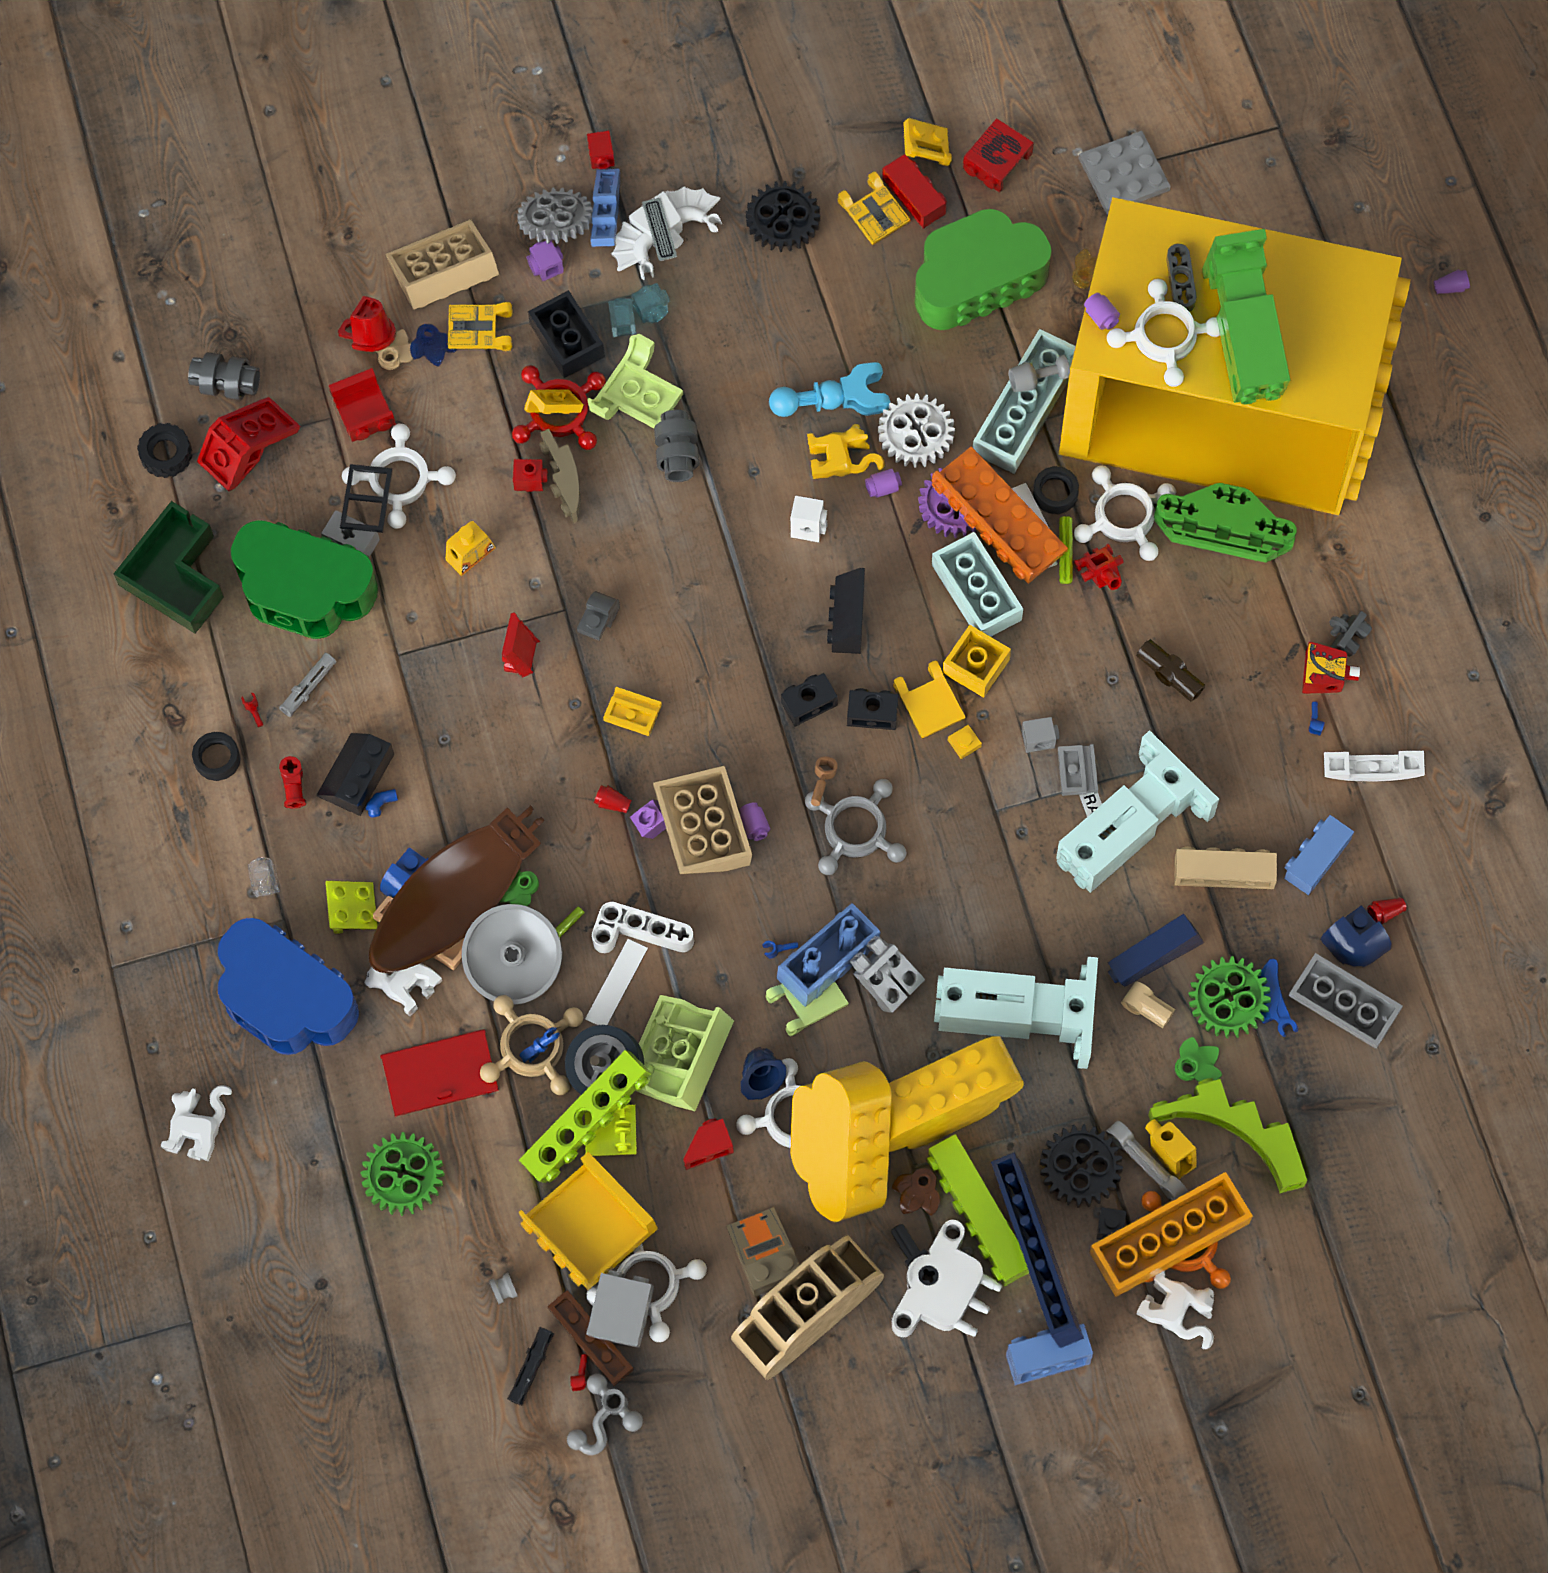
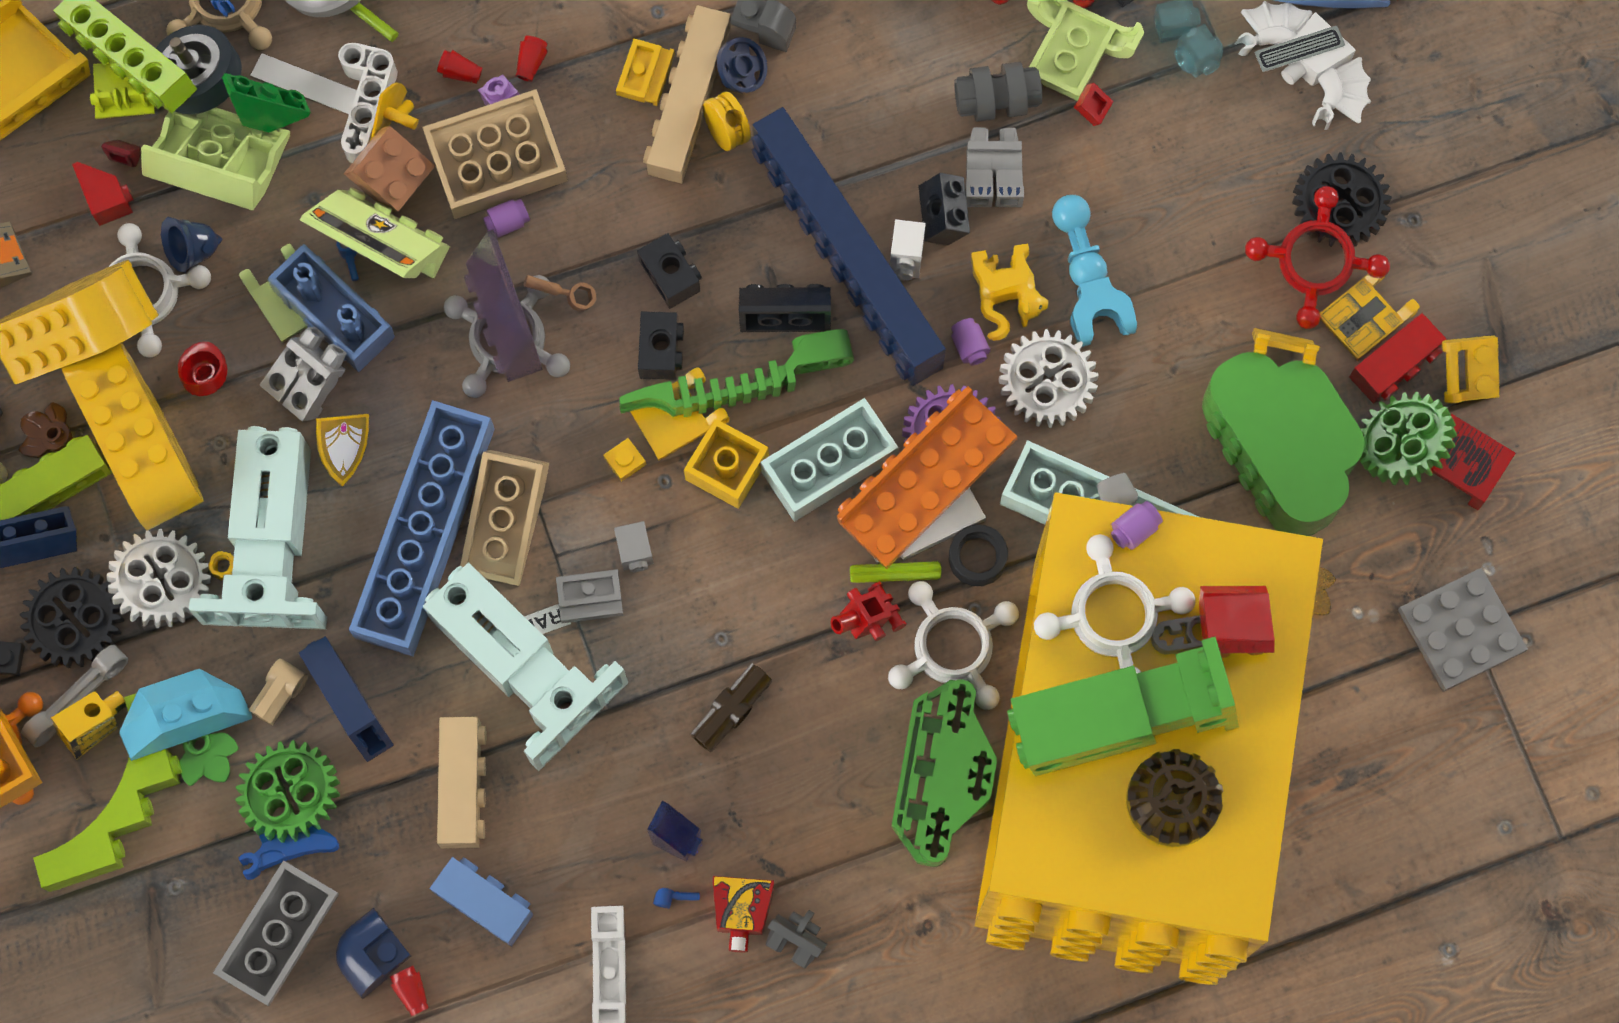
camera: 85 degrees right, 5 degrees up
(615, 857) = (458, 67): none -> red cone
(636, 635) = (741, 65): none -> dark blue wheel
(641, 1005) = (263, 104): none -> green slope
(655, 678) = (690, 88): none -> tan brick
(655, 902) = (392, 109): none -> yellow shield
(669, 1129) = (122, 152): none -> dark red slope
(685, 647) = (726, 121): none -> yellow head
(689, 381) = (1093, 104): none -> red plate
(710, 906) = (389, 169): none -> nougat brick
(740, 456) = (995, 159): none -> light grey hips
(764, 500) = (944, 209): none -> black brick
(770, 911) = (378, 233): none -> yellowish green piece
(801, 562) = (847, 247): none -> dark blue brick
(821, 275) = (1308, 315): none -> red piece
(848, 808) = (502, 310): none -> clear purple slope
(877, 1055) = (202, 369): none -> red hat
(901, 259) = (1266, 338): none -> yellow flag
(920, 684) = (810, 354): none -> bright green piece
(943, 952) = (342, 444): none -> shield
(988, 168) = (1407, 438): none -> bright green gear
(1008, 830) = (504, 515): none -> tan slope
(1019, 888) = (422, 528): none -> medium blue brick
(1040, 1041) = (213, 564): none -> yellow axle
(1052, 1095) = (133, 590): none -> white gear
(1167, 1075) = (180, 712): none -> medium azure wedge
(1177, 251) = (1237, 618): none -> red slope
(1270, 712) = (674, 832): none -> clear blue slope
(1300, 317) = (1146, 809): none -> dark brown gear

